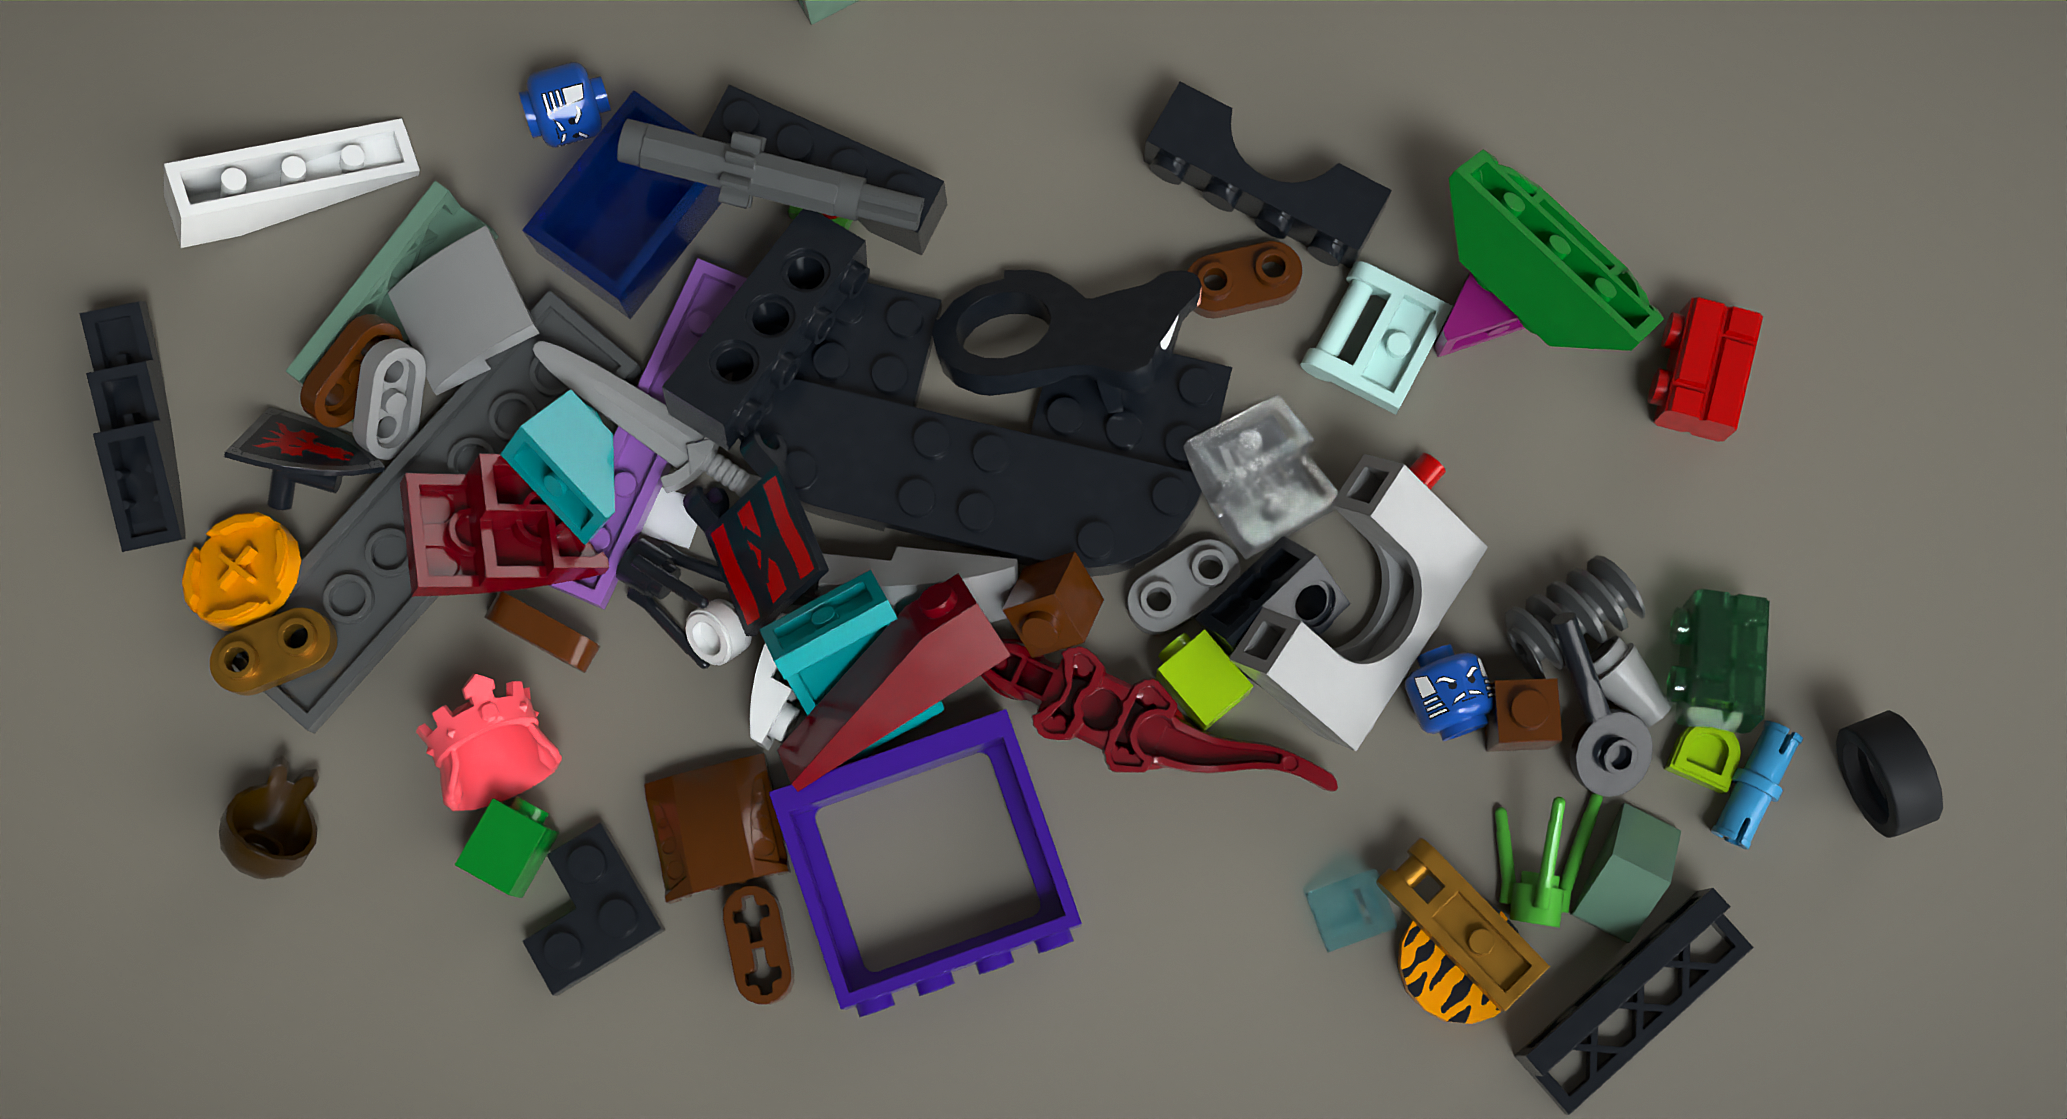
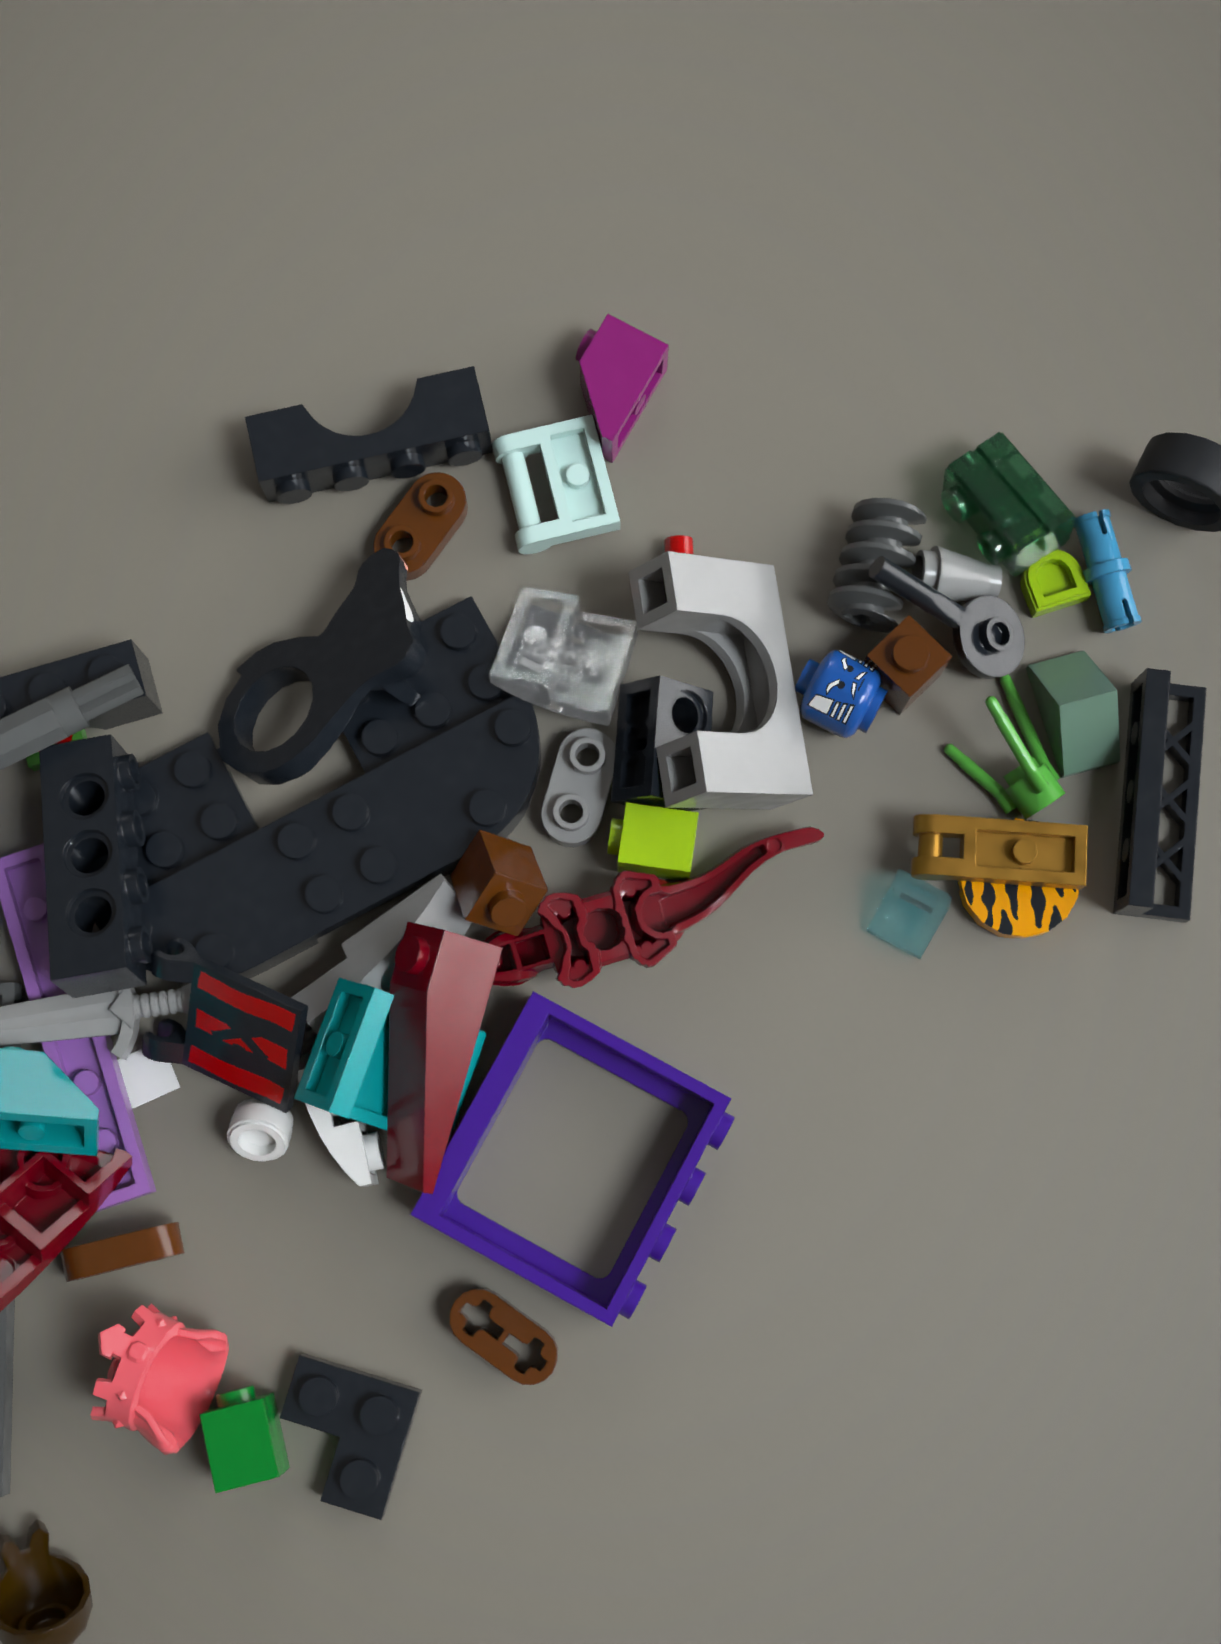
camera: 45 degrees left, 0 degrees up
(653, 573) = (170, 1129): black plant -> none
(716, 827) = (392, 1277): reddish brown slope -> none
(1544, 261) = (634, 323): green wedge -> none
(1705, 368) = (810, 308): red brick -> none

